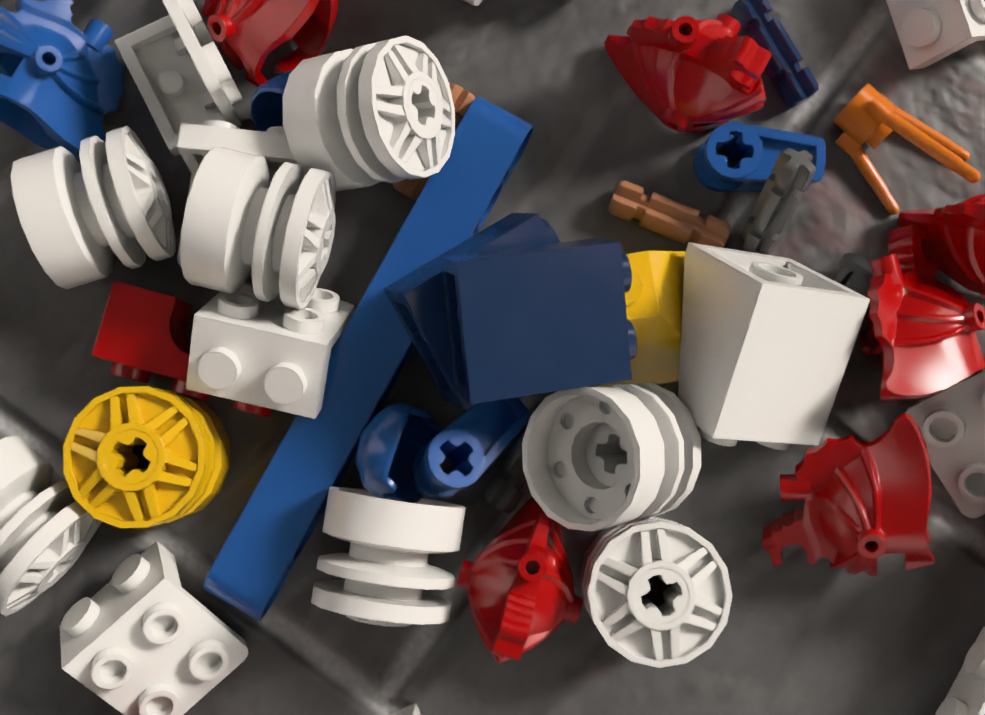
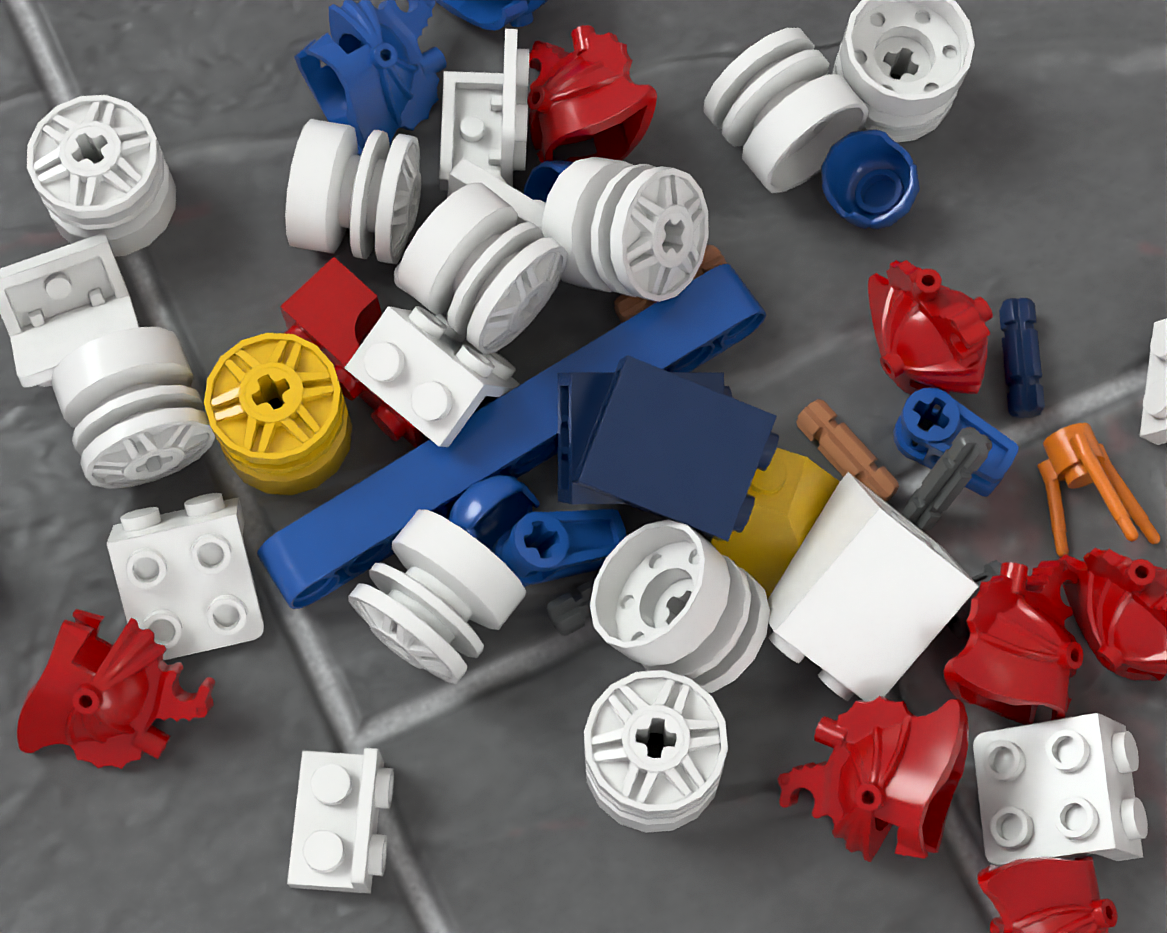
camera: 30 degrees right, 15 degrees down
(521, 585) = (540, 689): red helmet -> none

